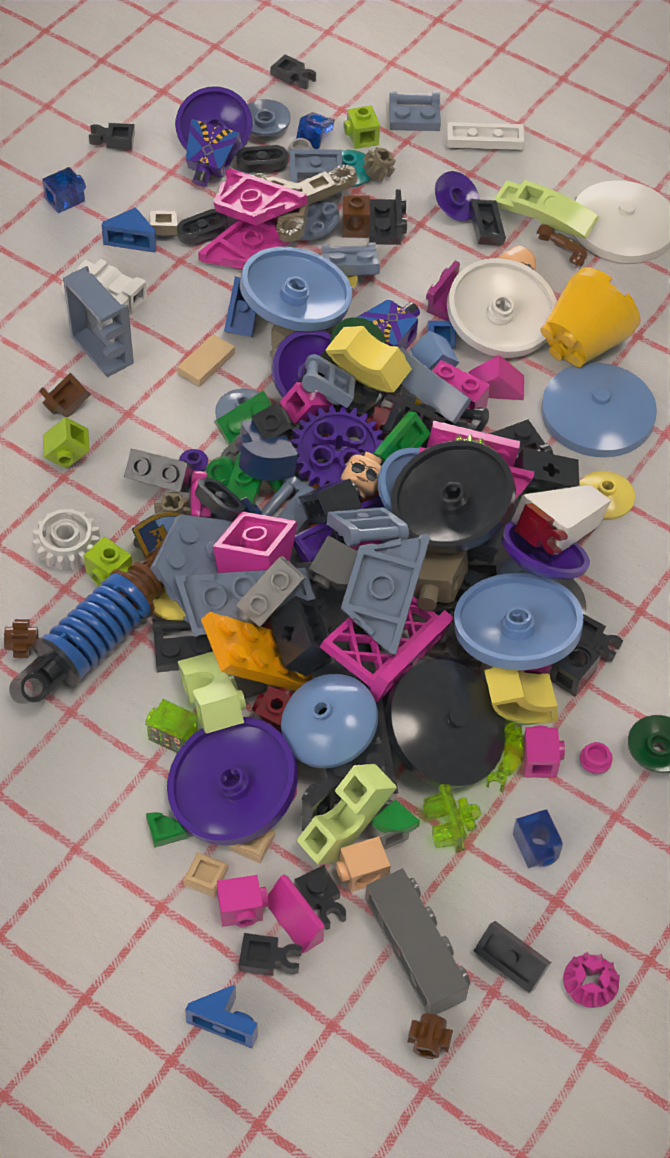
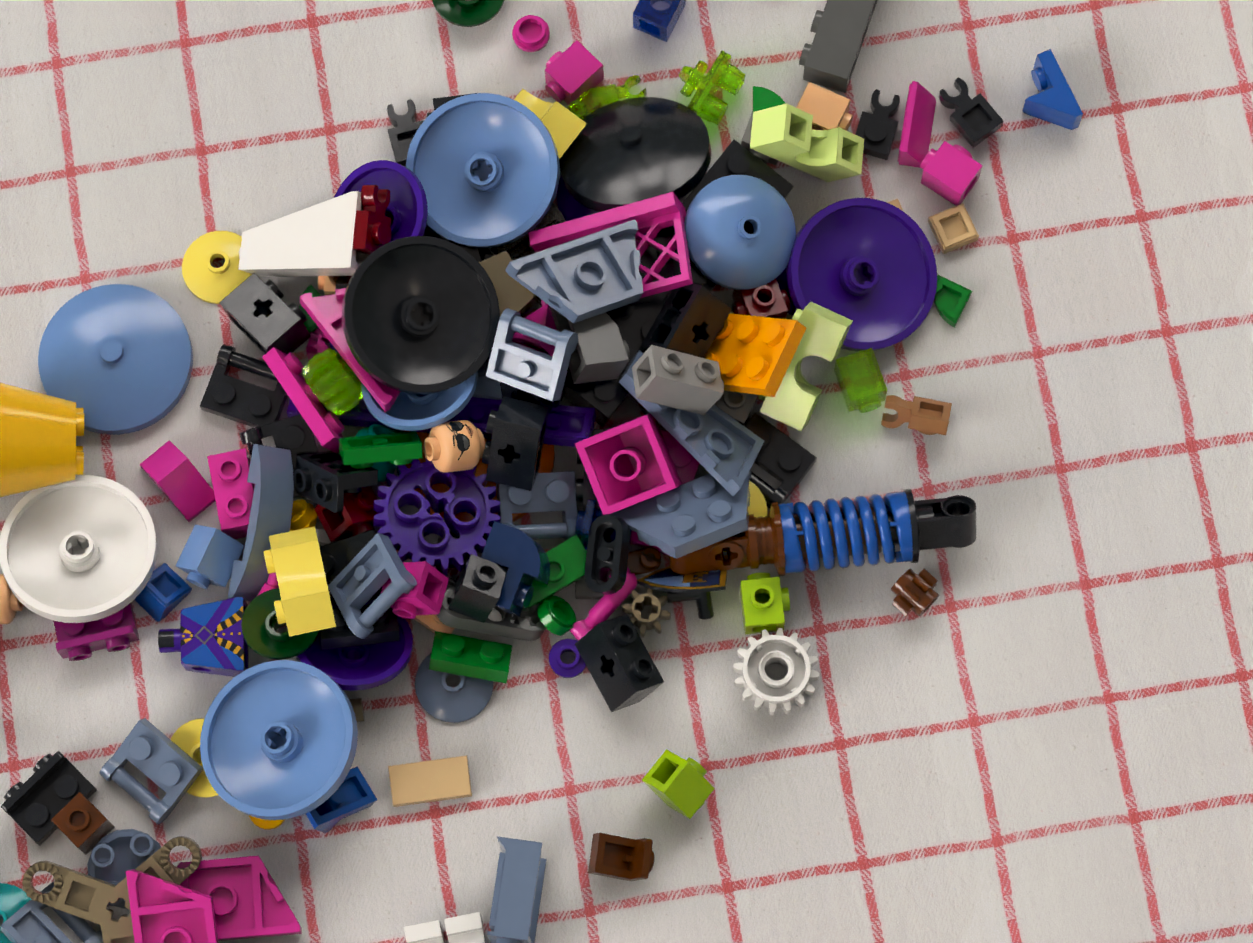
camera: 130 degrees left, 20 degrees up
(111, 739) = (923, 414): none -> medium nougat plate
(317, 800) = (817, 182): black plate -> none

